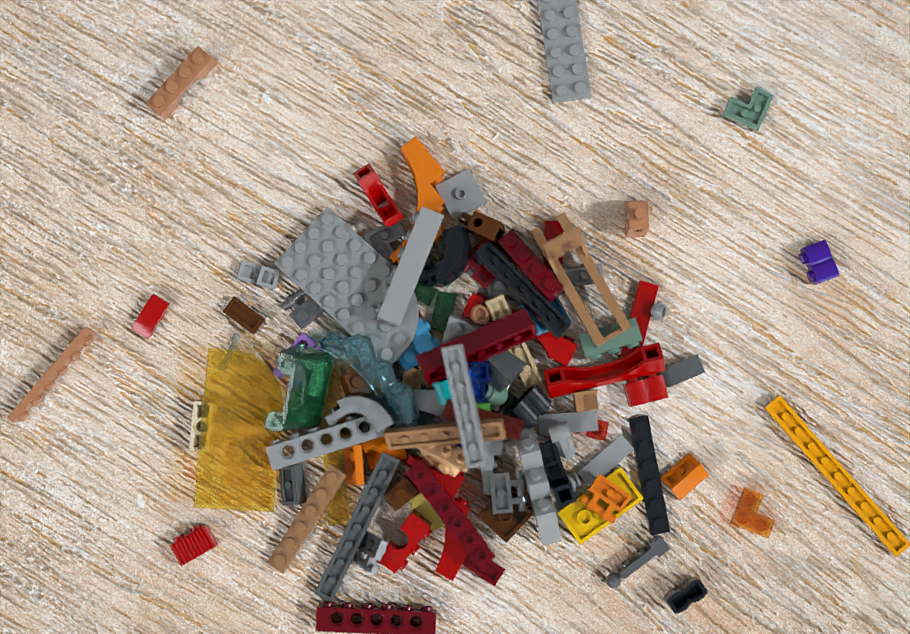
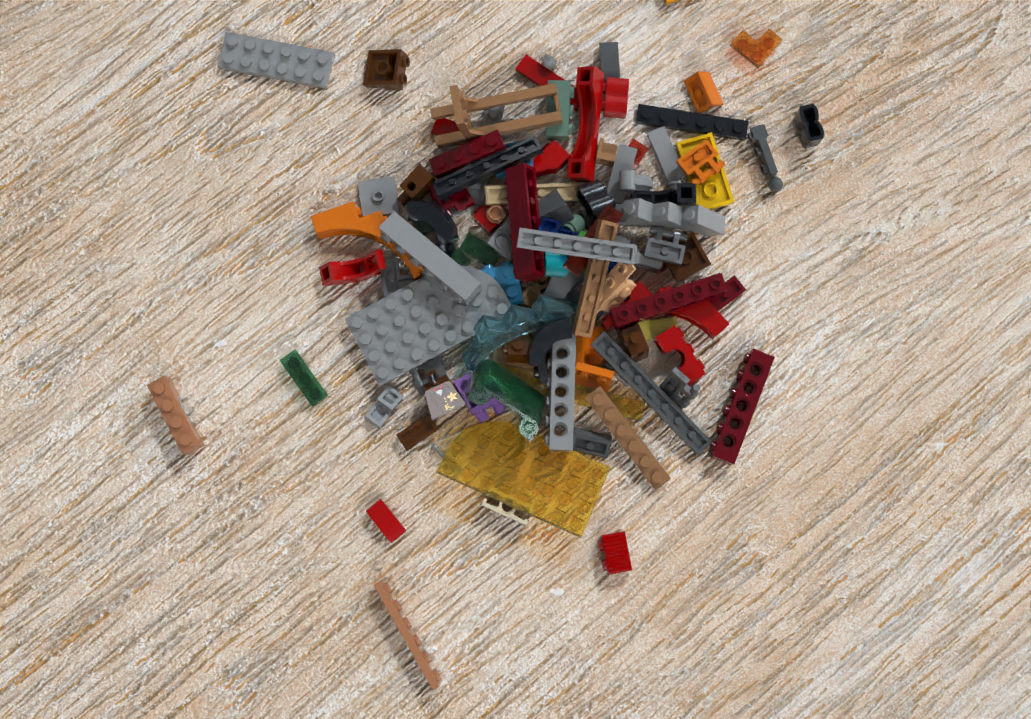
camera: 70 degrees left, 5 degrees down
(258, 189) = (304, 378): none -> clear green plate
(285, 325) = (441, 395): none -> torso
(591, 154) = (386, 69): none -> reddish brown plate
(636, 218) = (459, 50): nougat torso -> none

